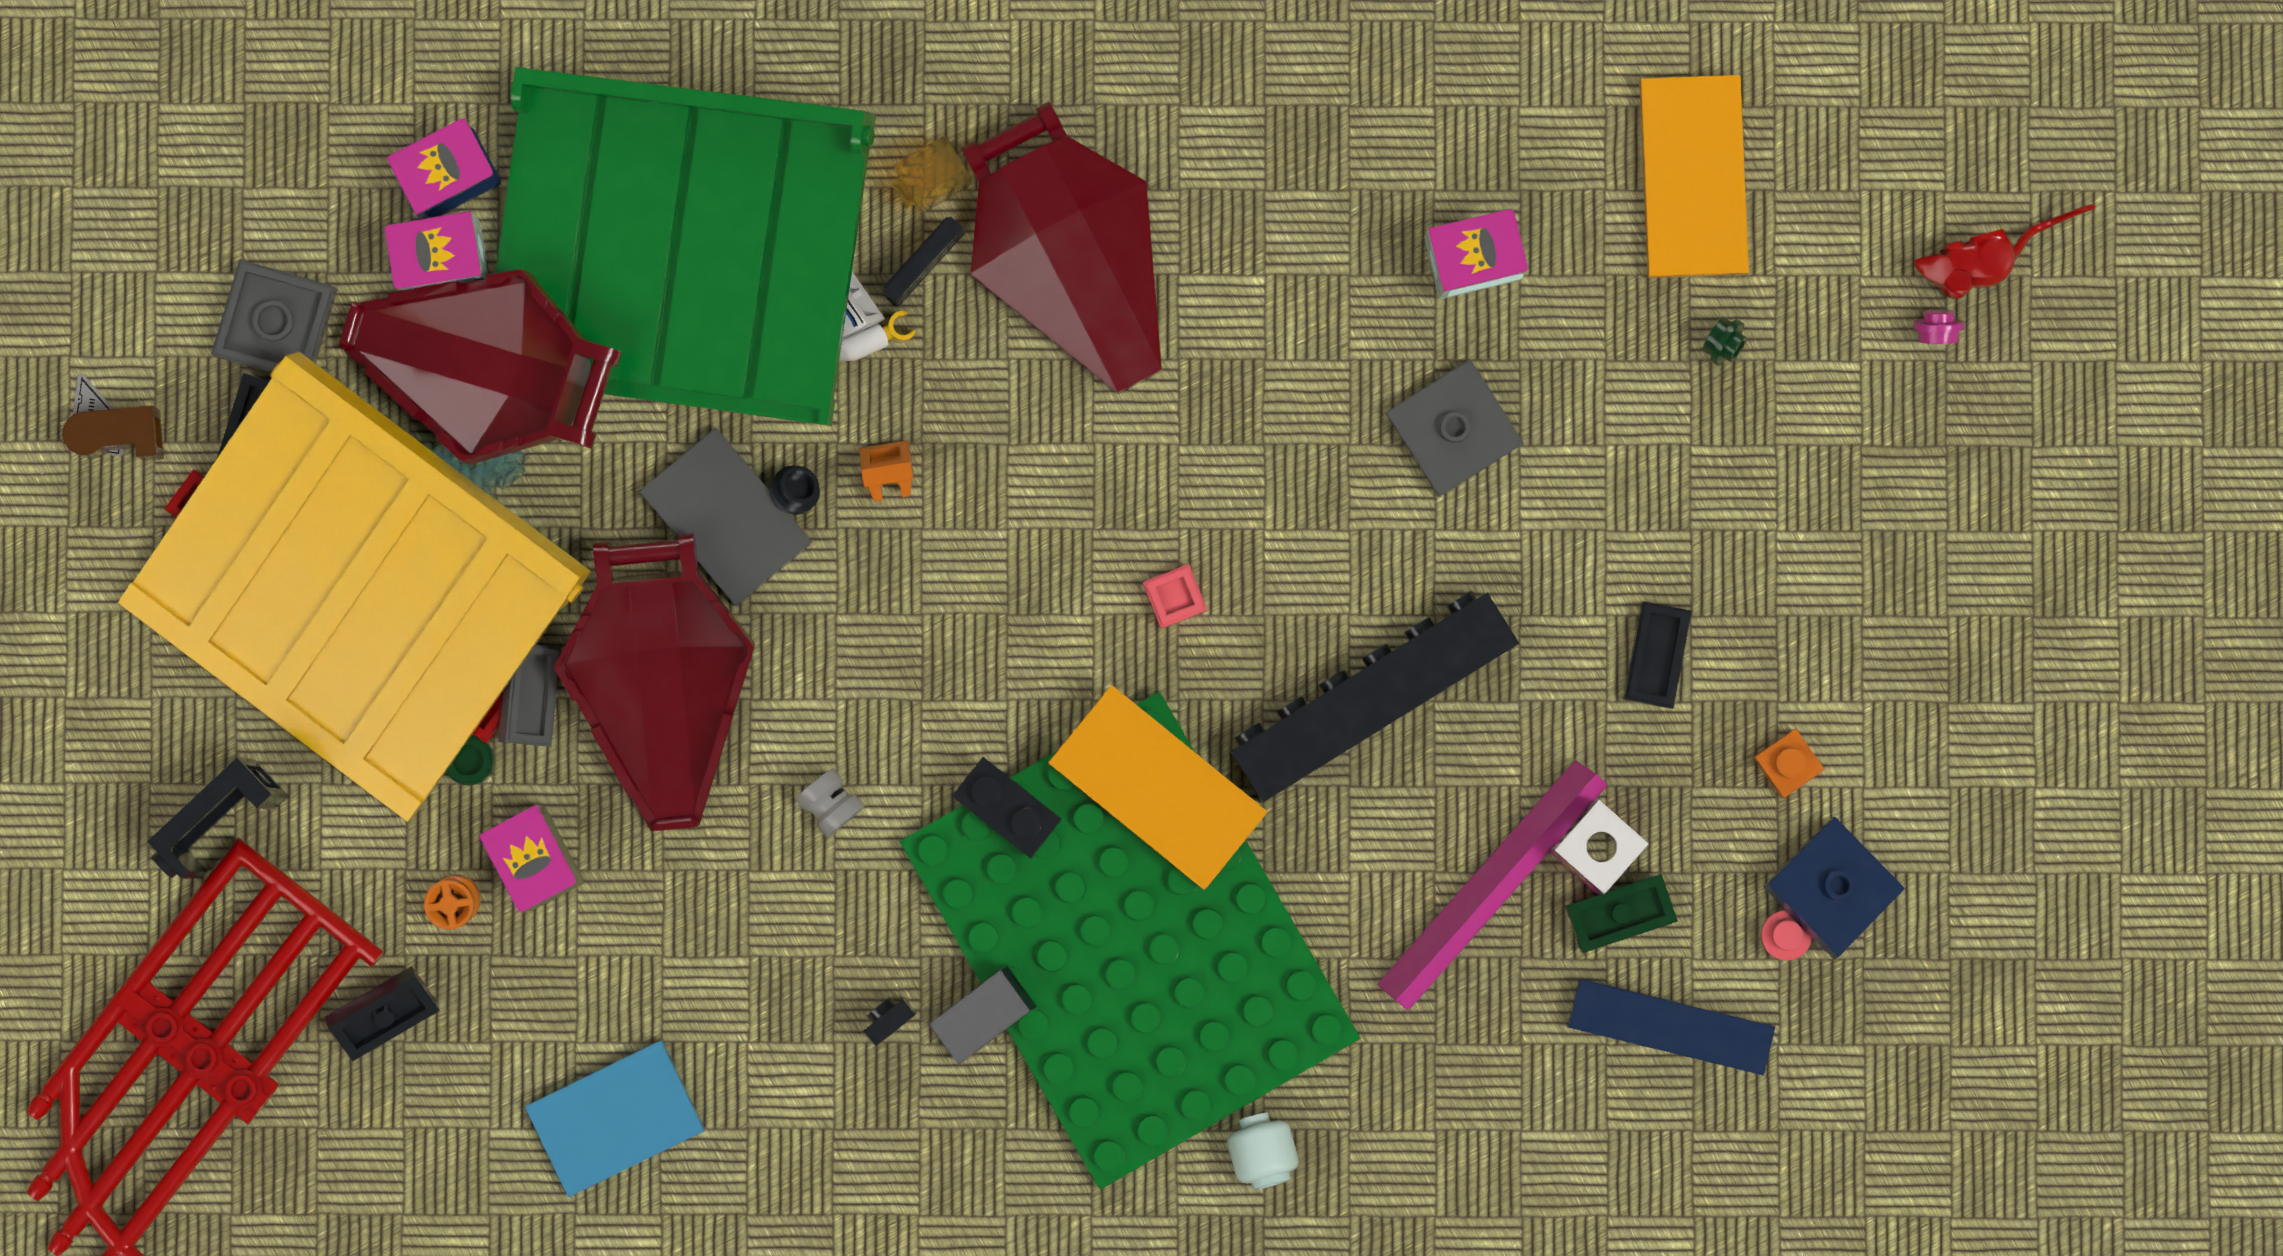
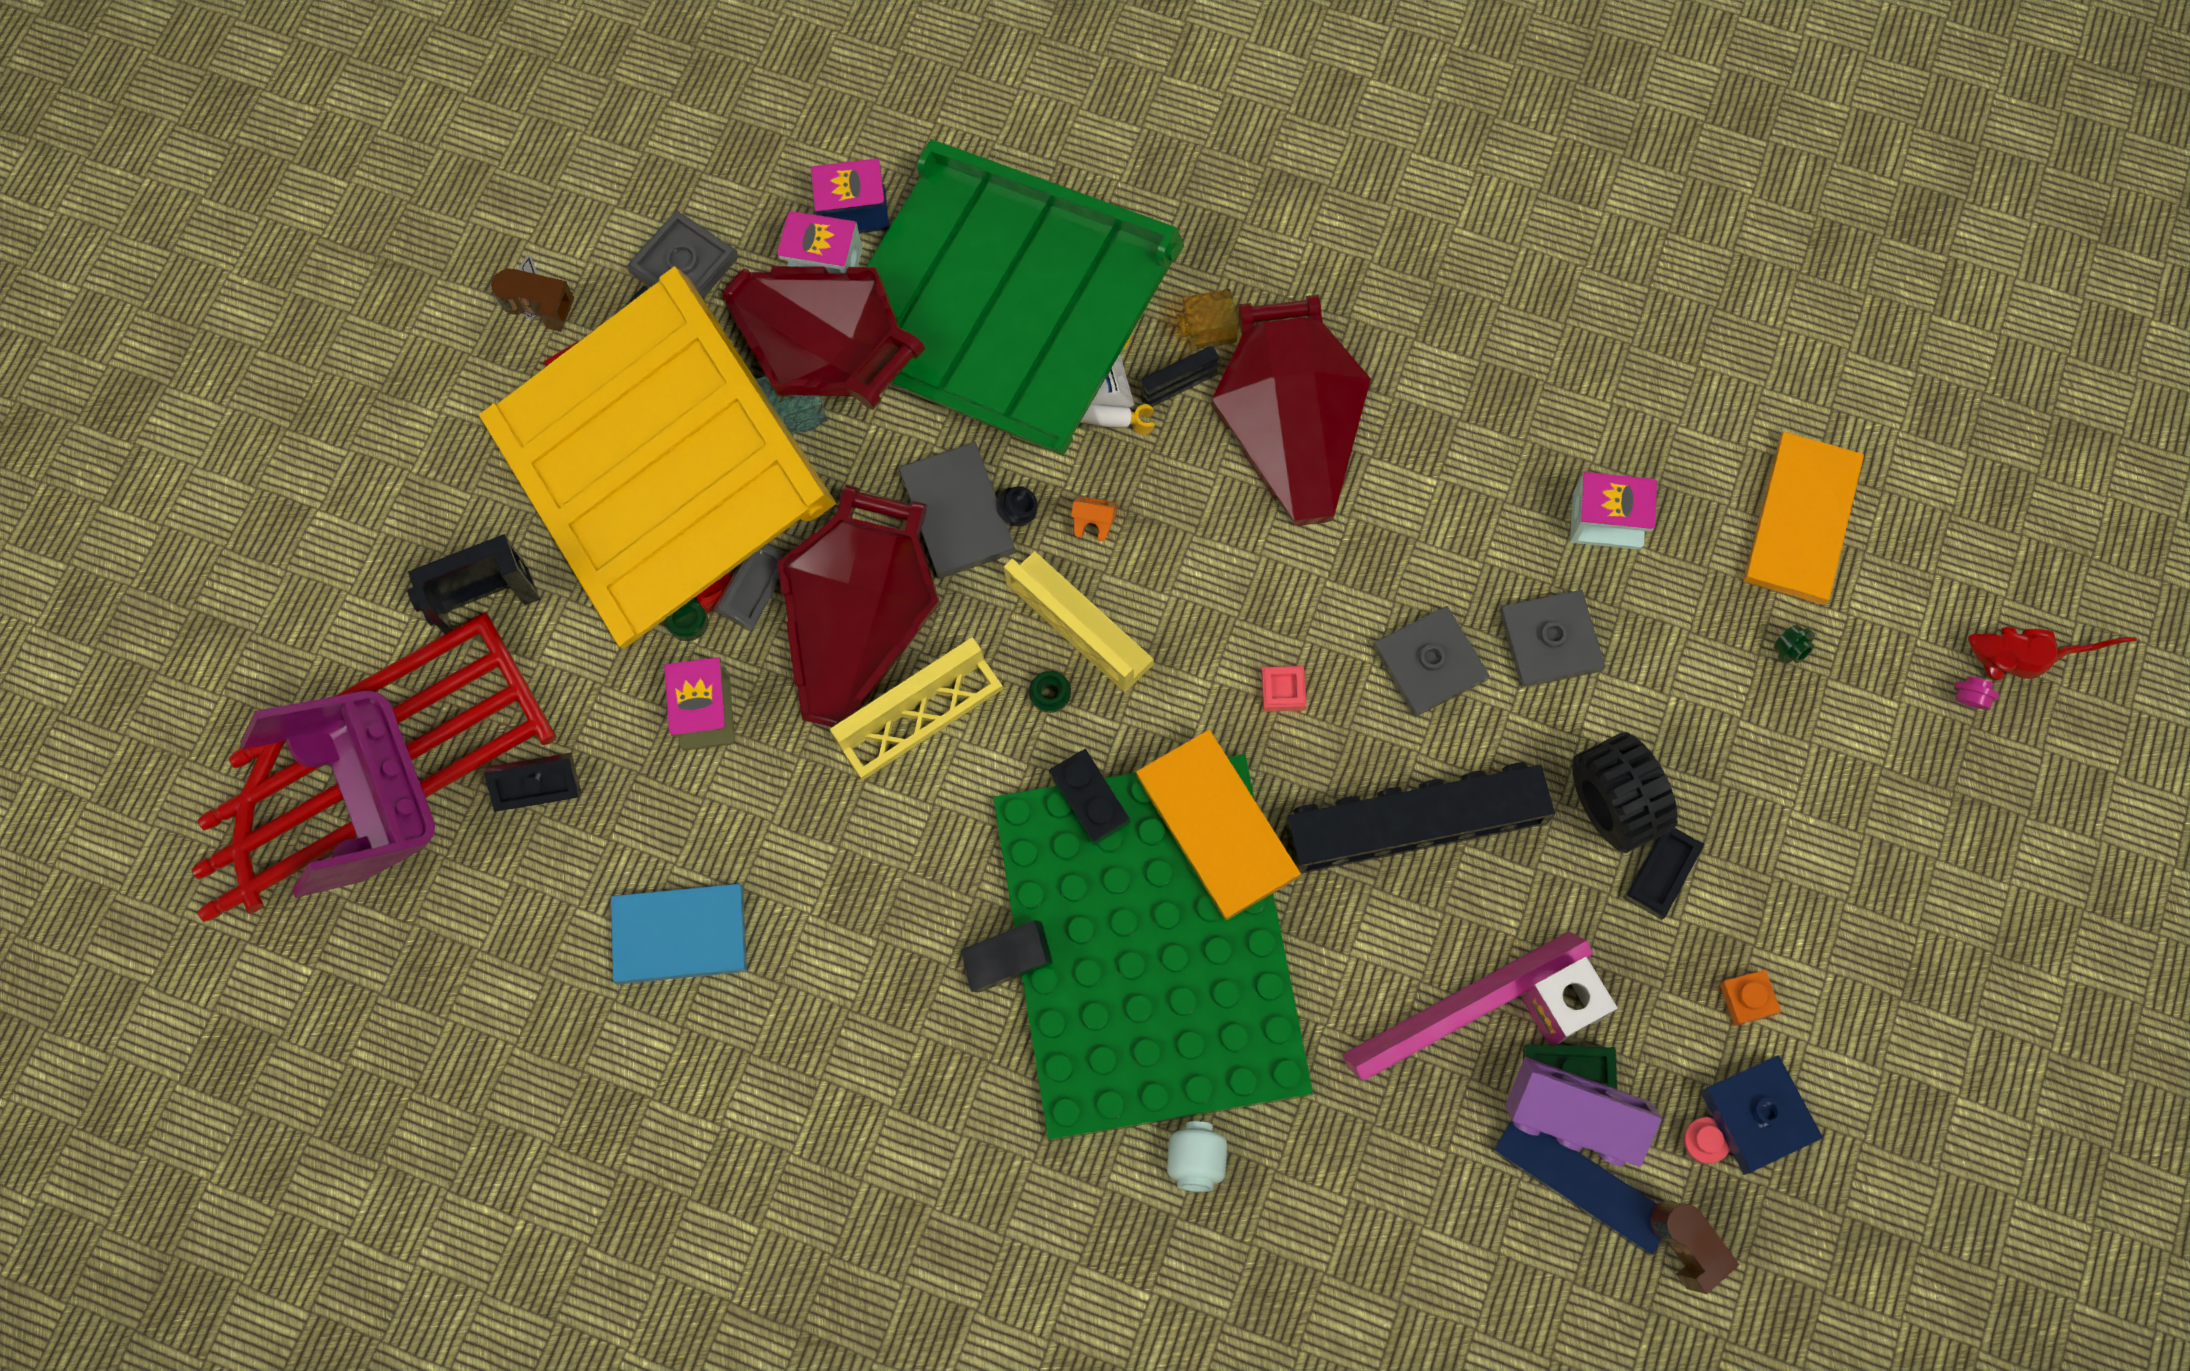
camera: 25 degrees right, 15 degrees down
(211, 1082) = (374, 775): none -> magenta windscreen
(442, 905) = (616, 712): orange wheel -> none
(759, 763) = (909, 695): none -> light yellow fence
(829, 802) = (950, 746): light grey wheel -> none
(888, 1018) = (928, 933): black plate -> none
(899, 696) = (1046, 680): none -> dark green plate
(916, 600) = (1078, 620): none -> light yellow fence
(1328, 504) = (1431, 661): none -> dark grey plate
(1586, 594) = (1624, 792): none -> black tyre
(1646, 959) = (1582, 1113): none -> medium lavender brick
(1802, 1049) = (1695, 1243): none -> reddish brown leg

